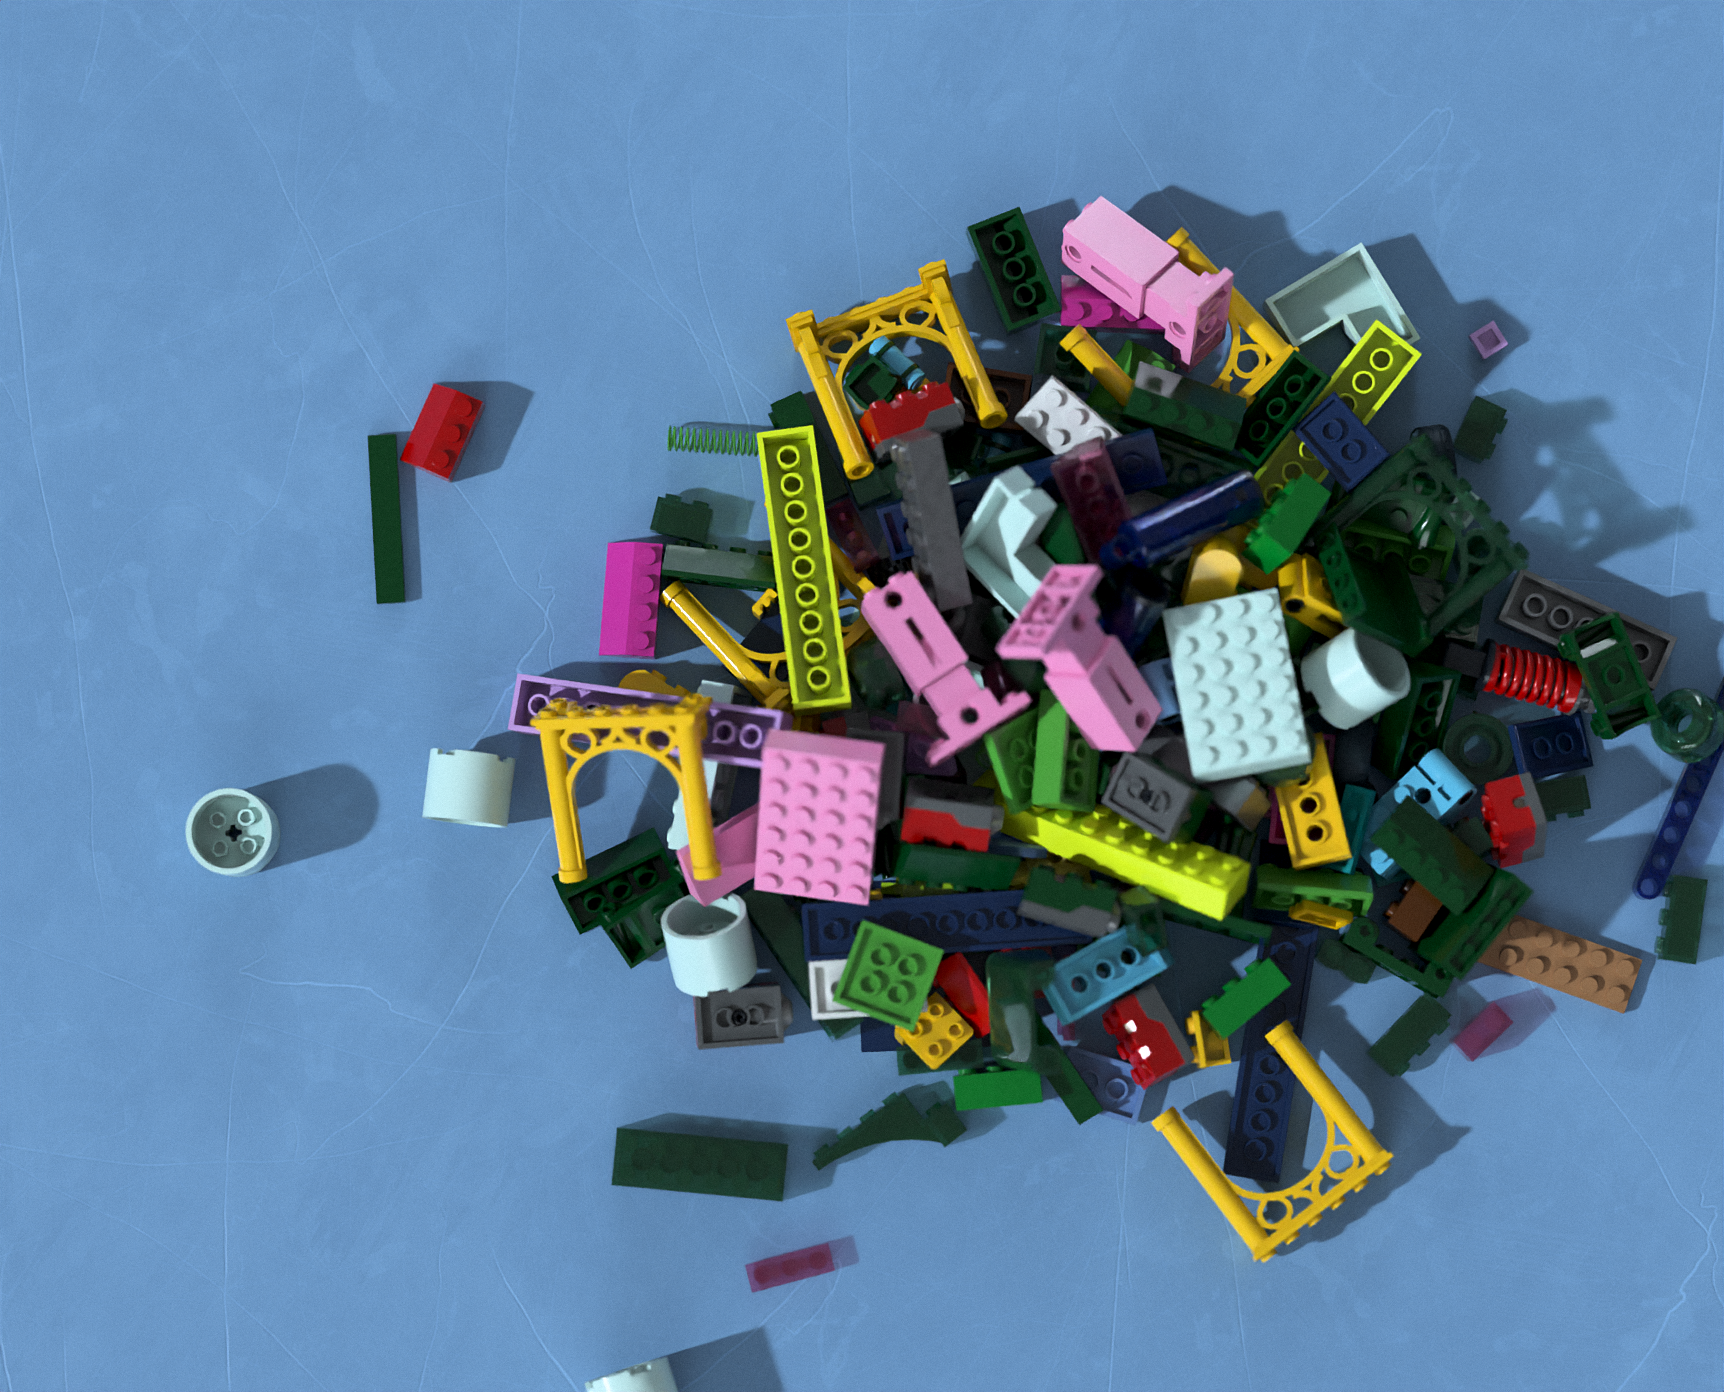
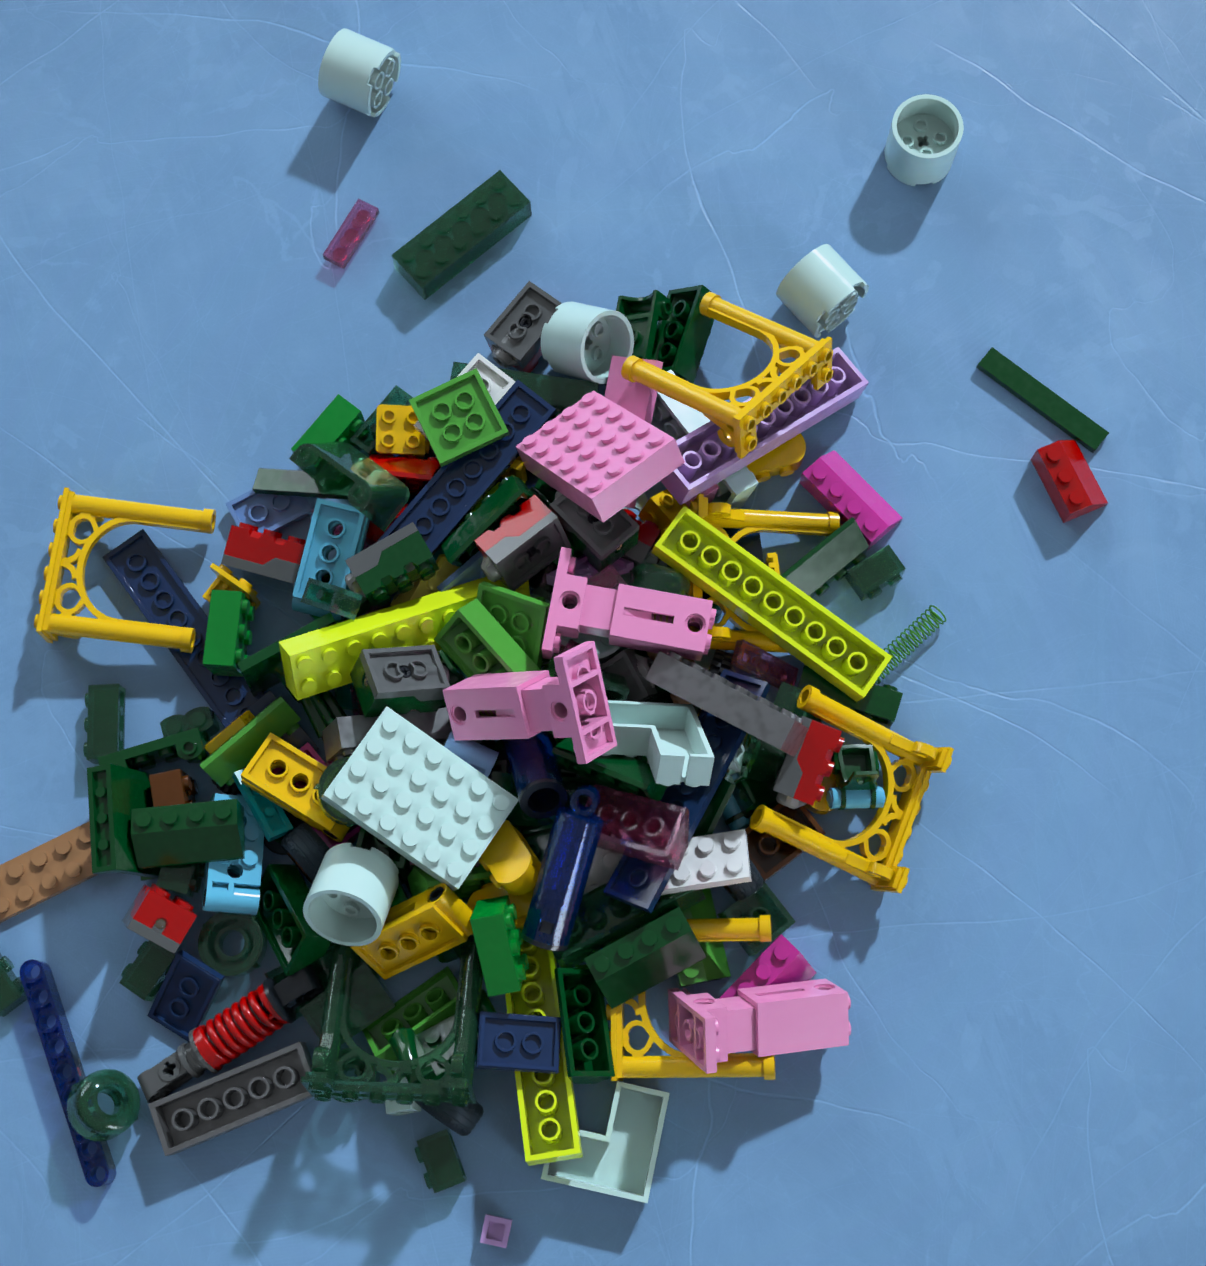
camera: 135 degrees right, 10 degrees down
(894, 1122) = (373, 365): clear green arch -> none
(1013, 271) = (850, 938): dark green slope -> none
(1373, 594) = (394, 961): dark green panel -> none
(1480, 1031) = (59, 771): clear pink brick -> none
(1610, 675) = (186, 1080): dark green piece -> none

